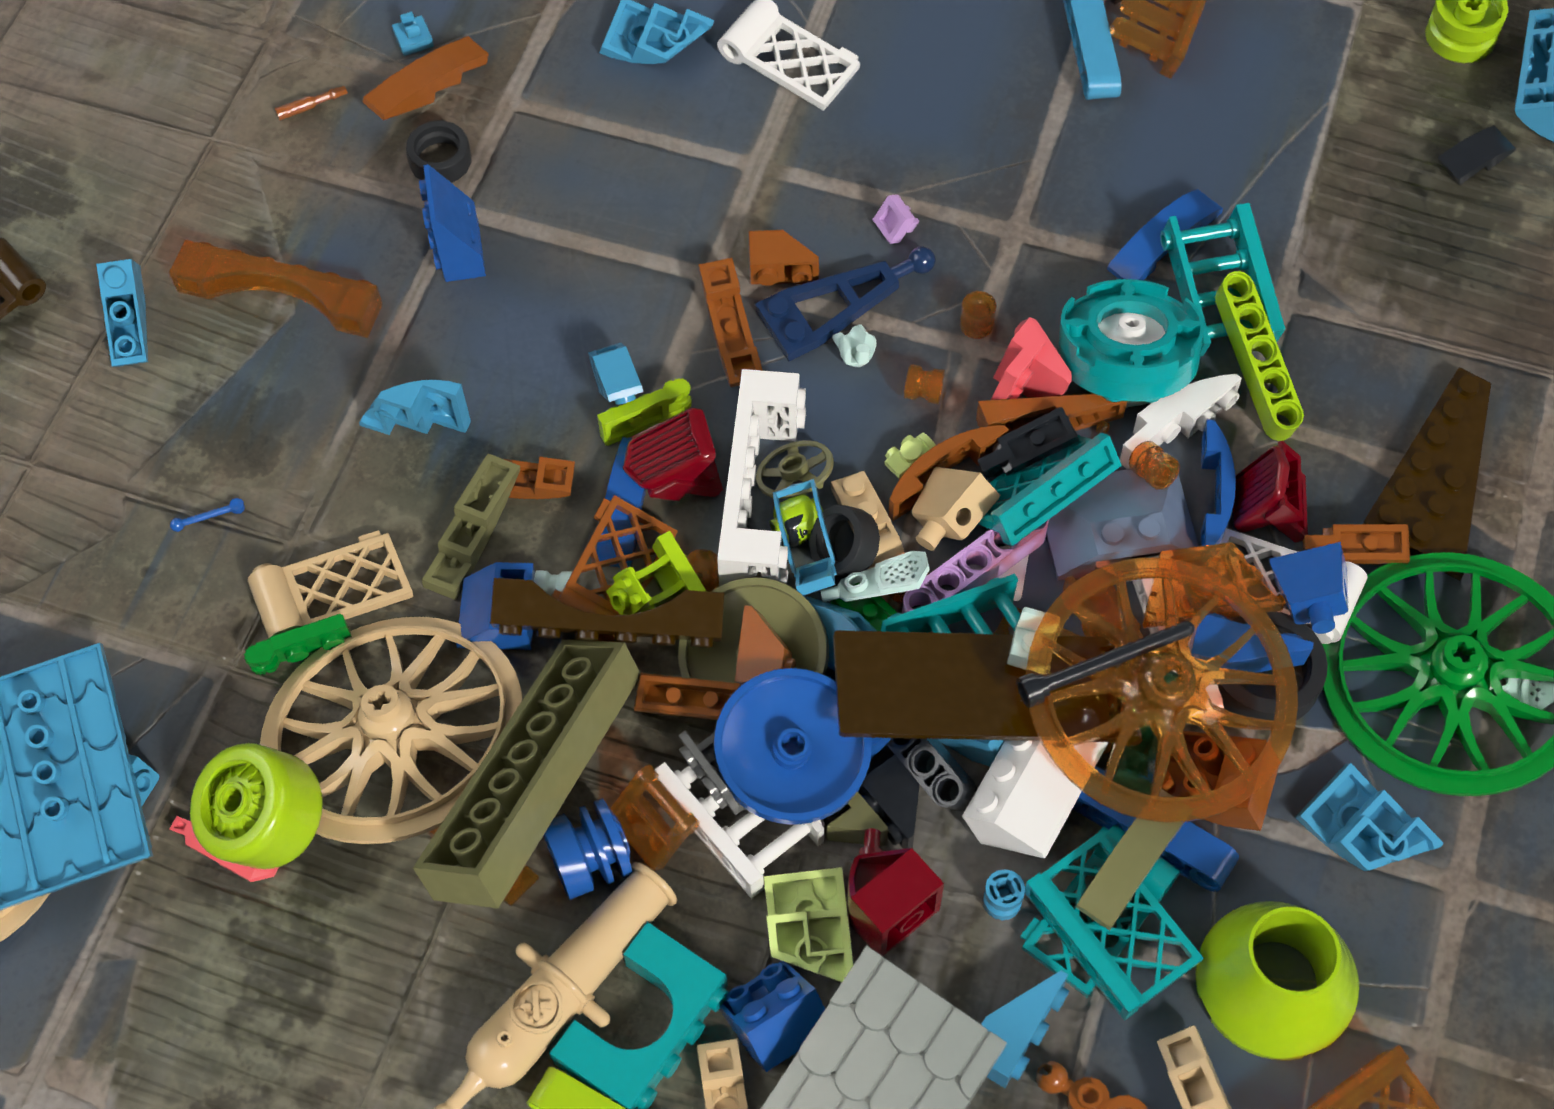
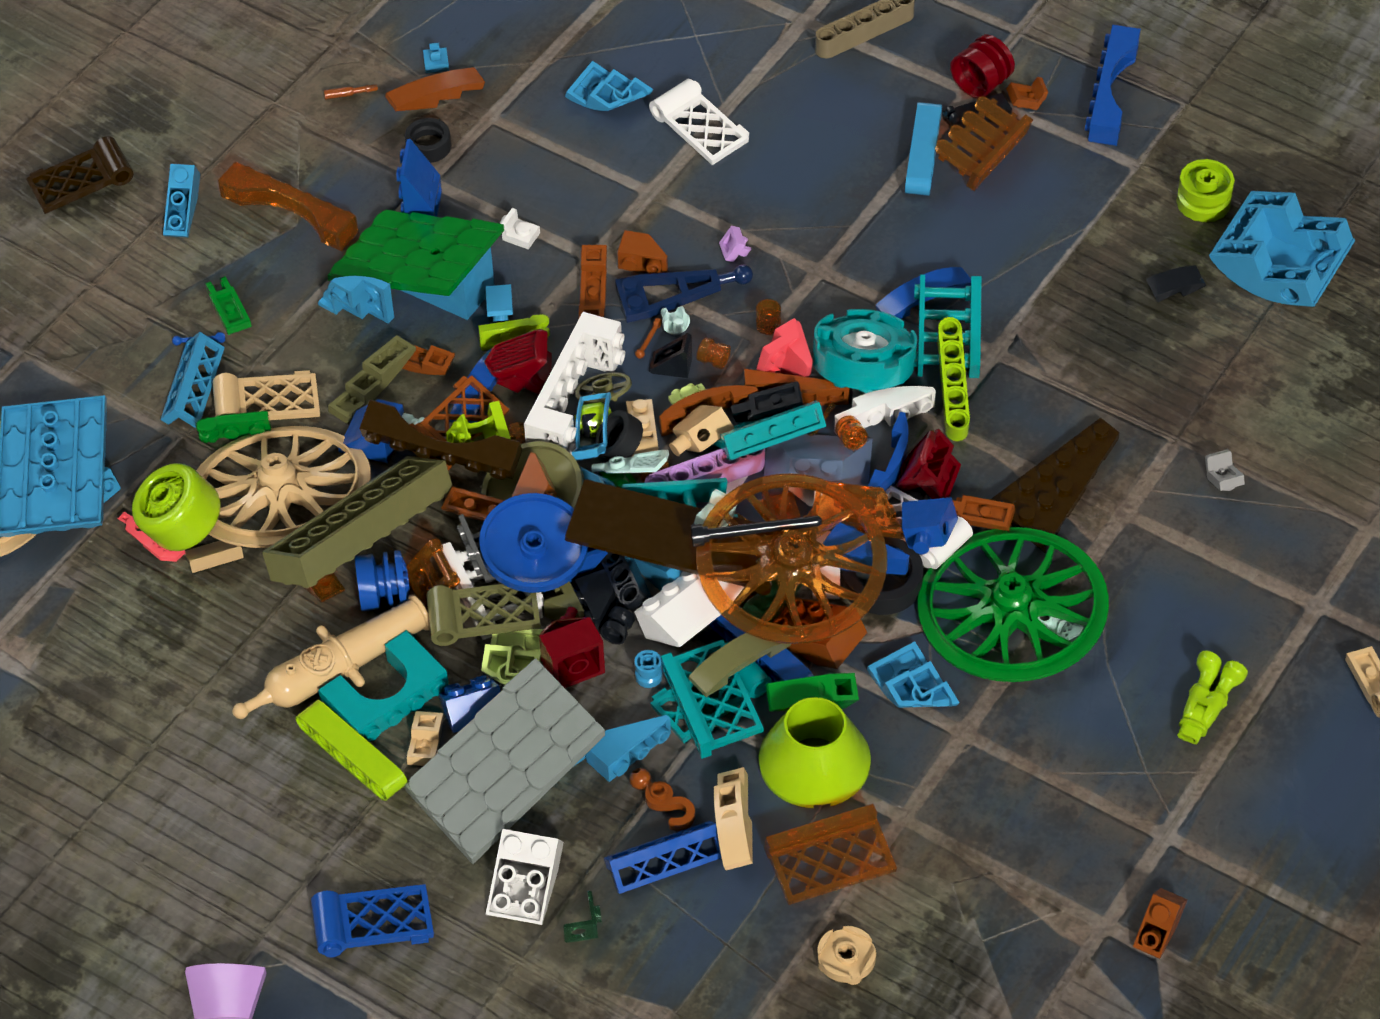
camera: 15 degrees right, 10 degrees down
(206, 584) = (187, 370): none -> dark azure fence
(236, 458) = (228, 307): none -> green hinge
(322, 858) = (212, 555): none -> tan slope
(489, 328) = (427, 257): none -> green piece
(601, 259) = (518, 231): none -> white bracket
(704, 895) = (446, 616): none -> olive piece
(823, 403) = (639, 353): none -> dark orange hinge
(872, 403) = (673, 358): none -> black slope
(937, 835) = (617, 625): none -> black wheel
(1251, 884) = (837, 688): none -> green slope

